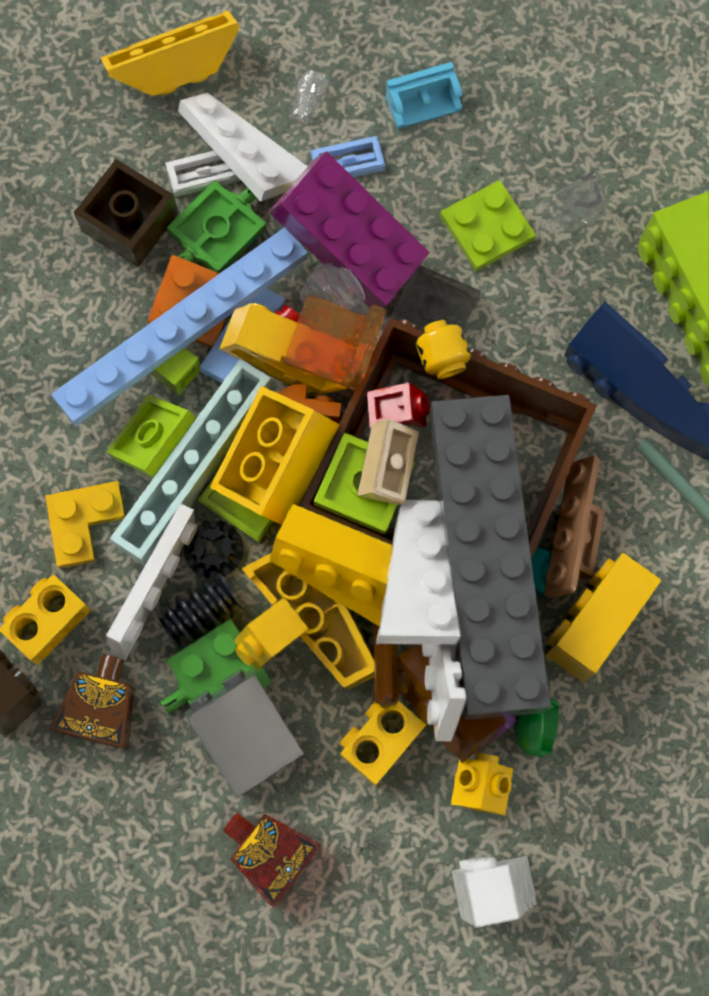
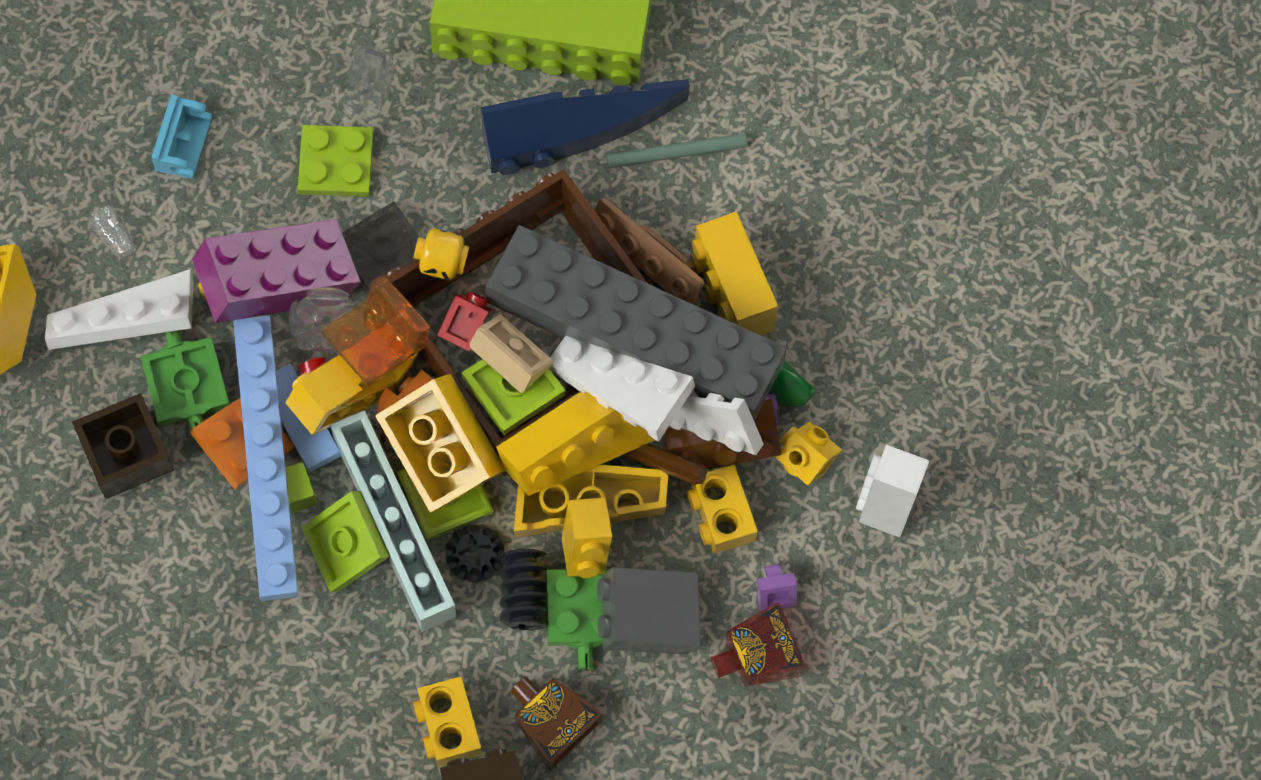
camera: 60 degrees left, 5 degrees down
(73, 514) = (368, 651): yellow plate -> none
(149, 585) = (479, 615): white wing -> none
(201, 184) = (112, 391): white tile -> none
(336, 834) = (776, 588): none -> medium lavender tile
(352, 146) = (185, 263): light blue tile -> none

